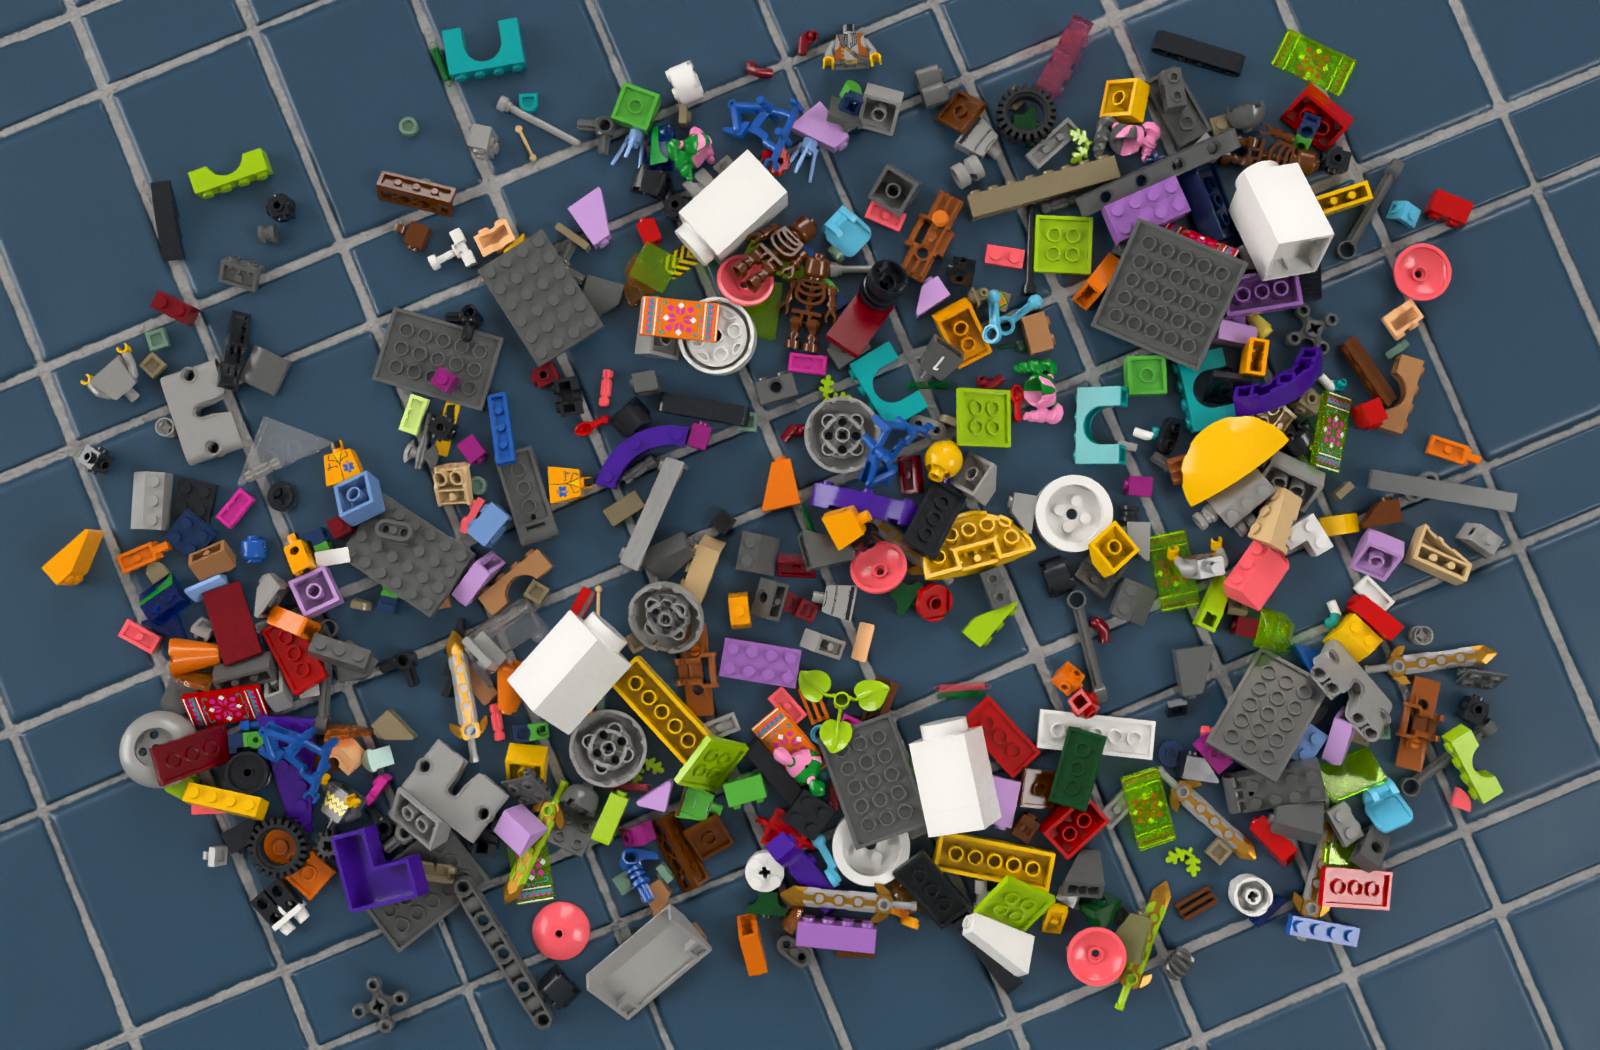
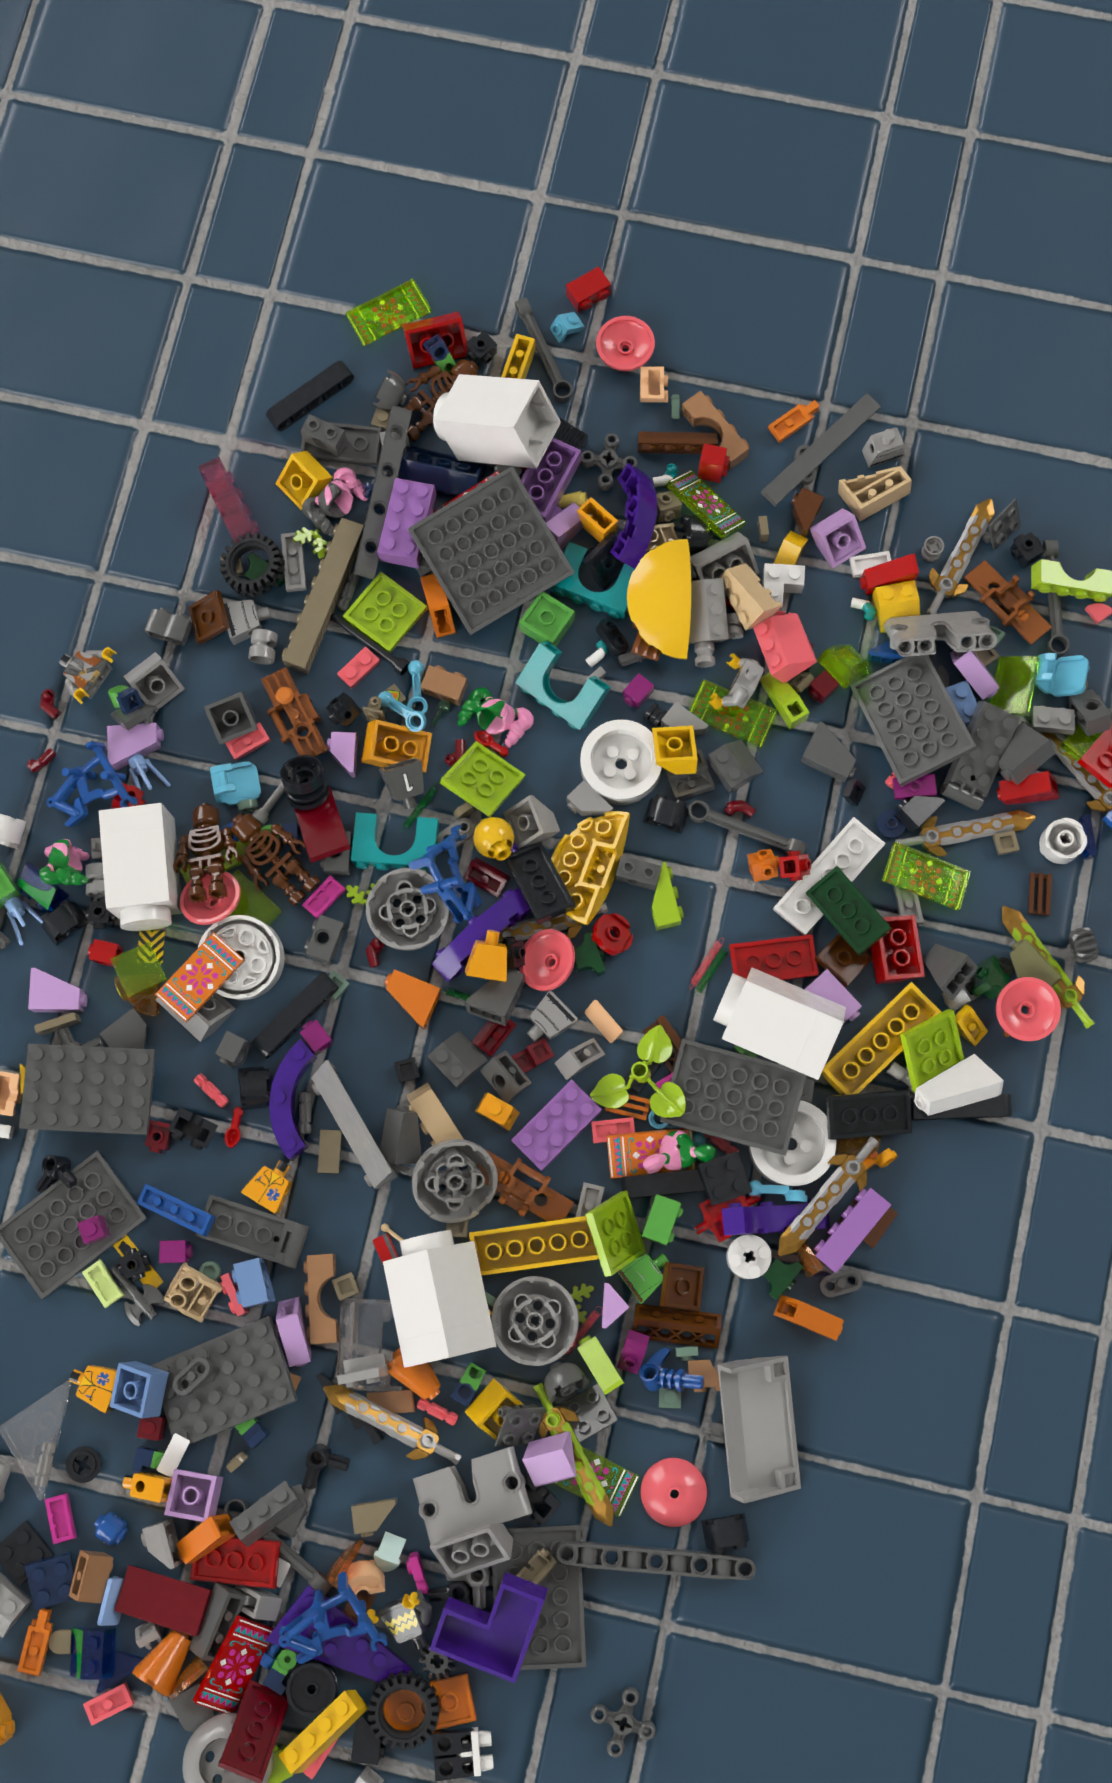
camera: 50 degrees left, 10 degrees down
(684, 116) = (29, 850): dark tan plate -> none
(1025, 826) = (869, 994): reddish brown brick -> none
(1192, 860) = (985, 885): lime animal -> none

